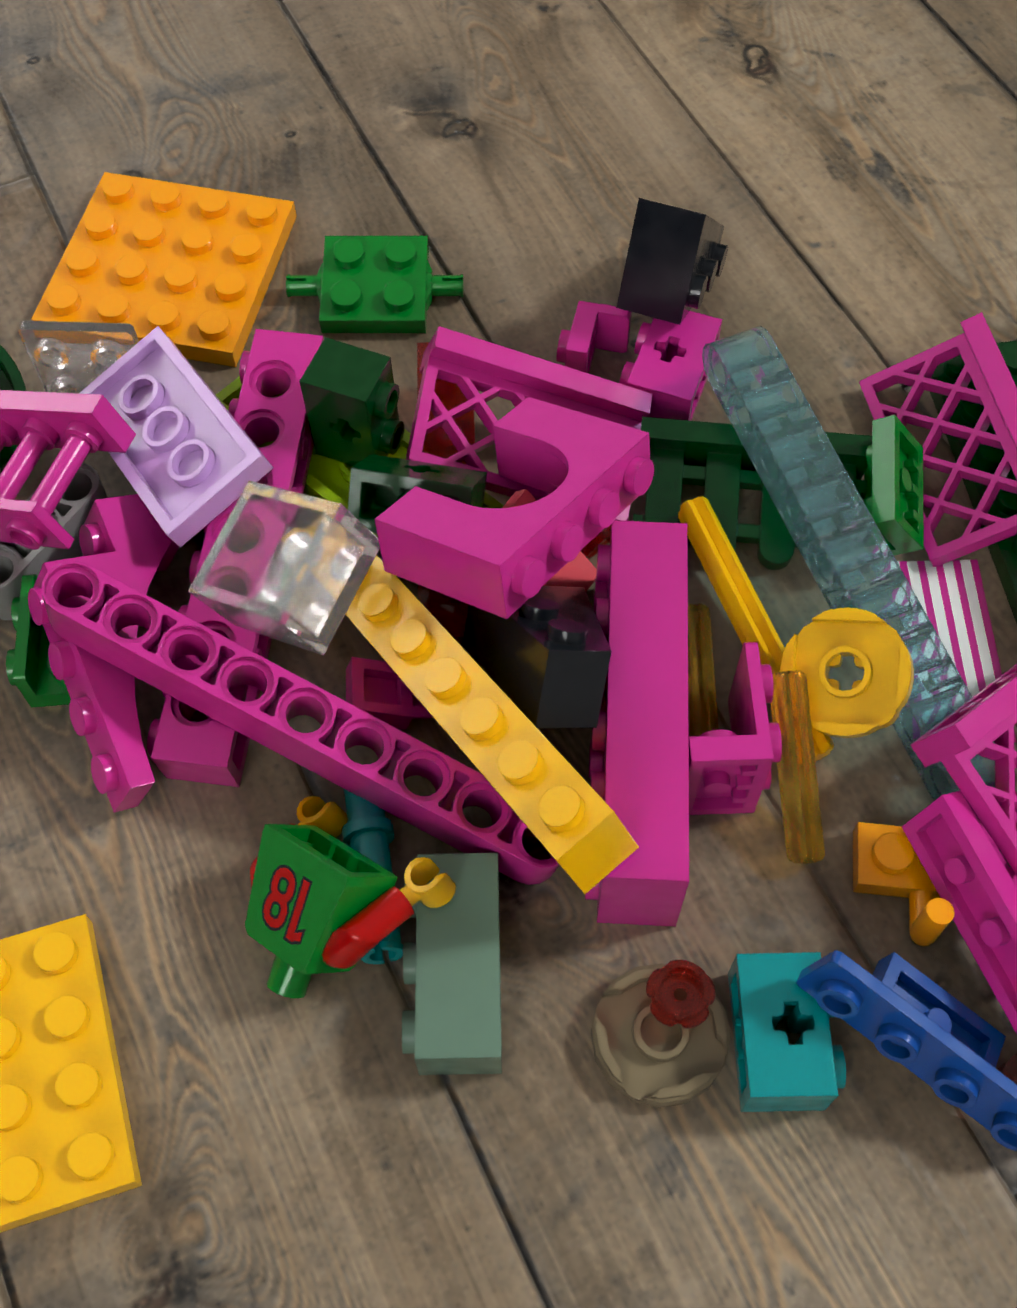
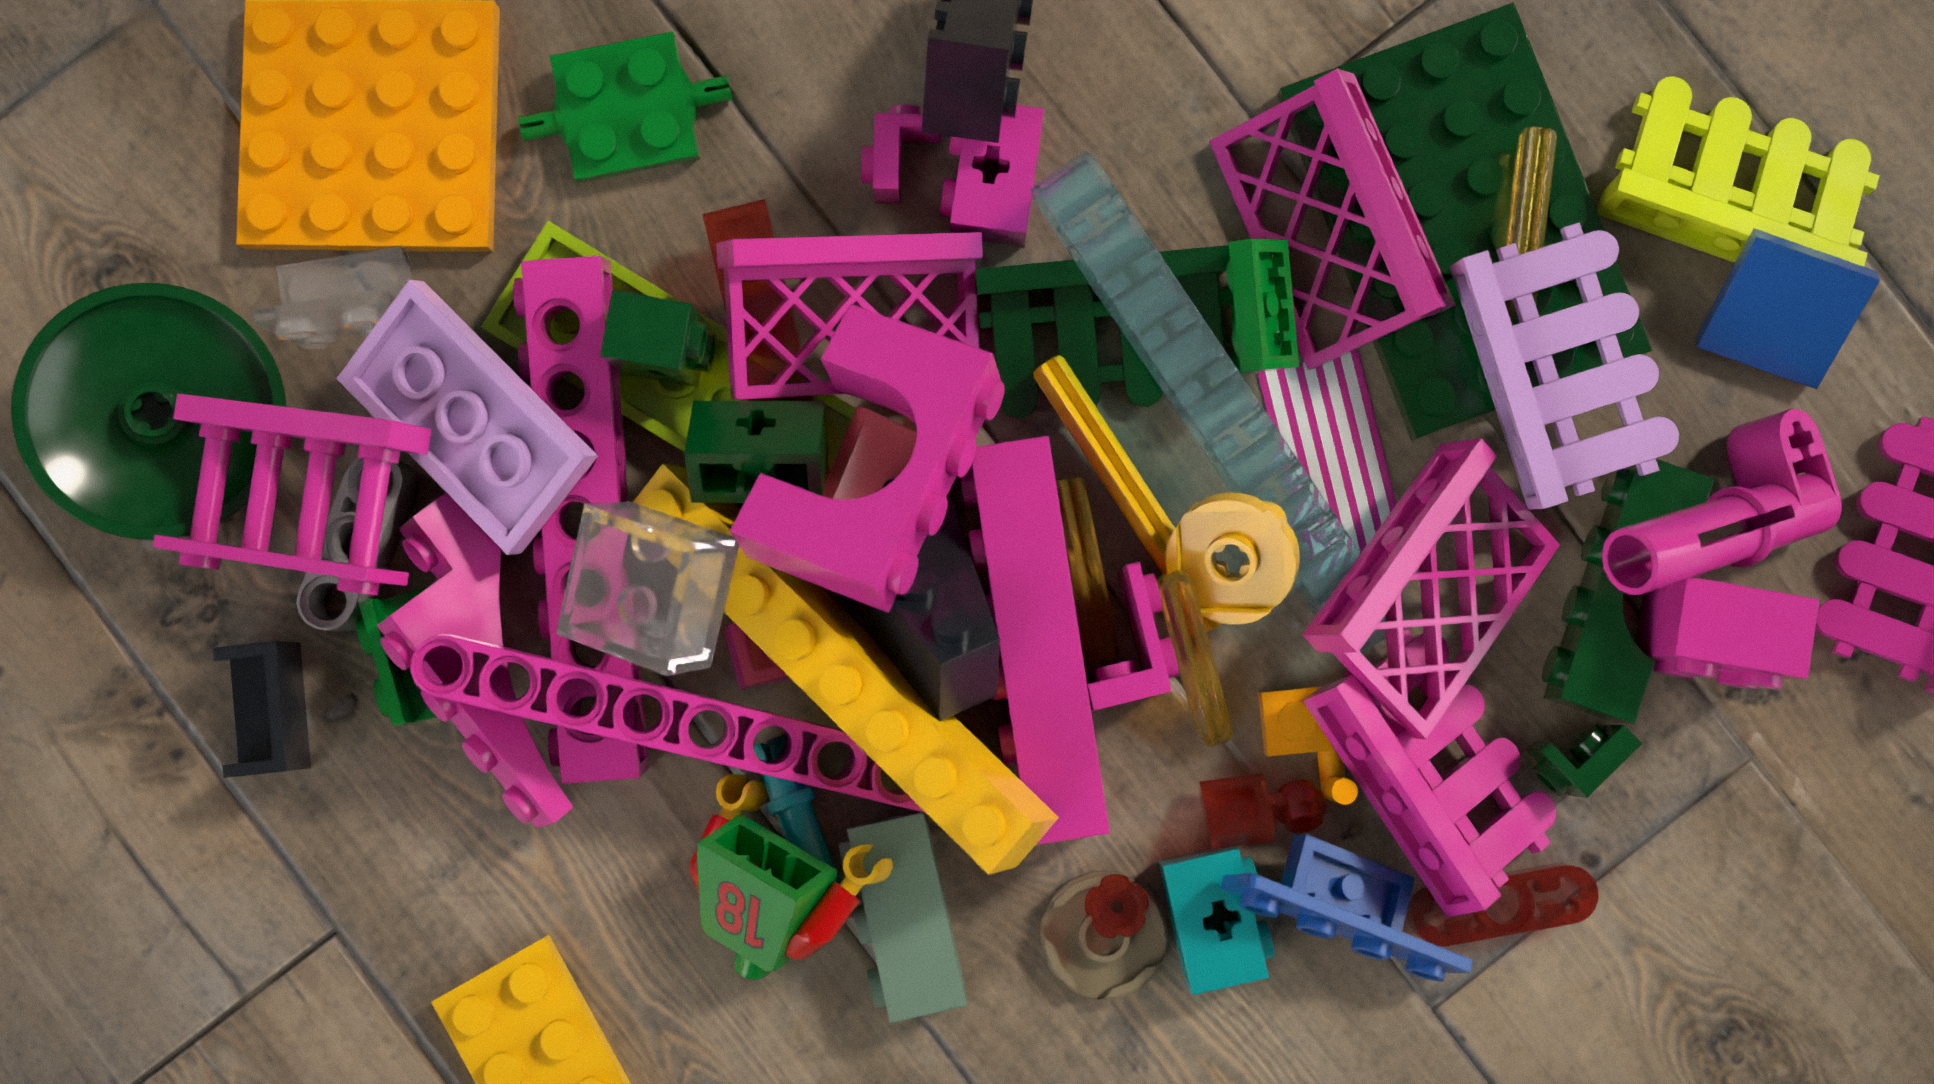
camera: 10 degrees left, 25 degrees up
(831, 925) = (1243, 813): none -> clear red plate

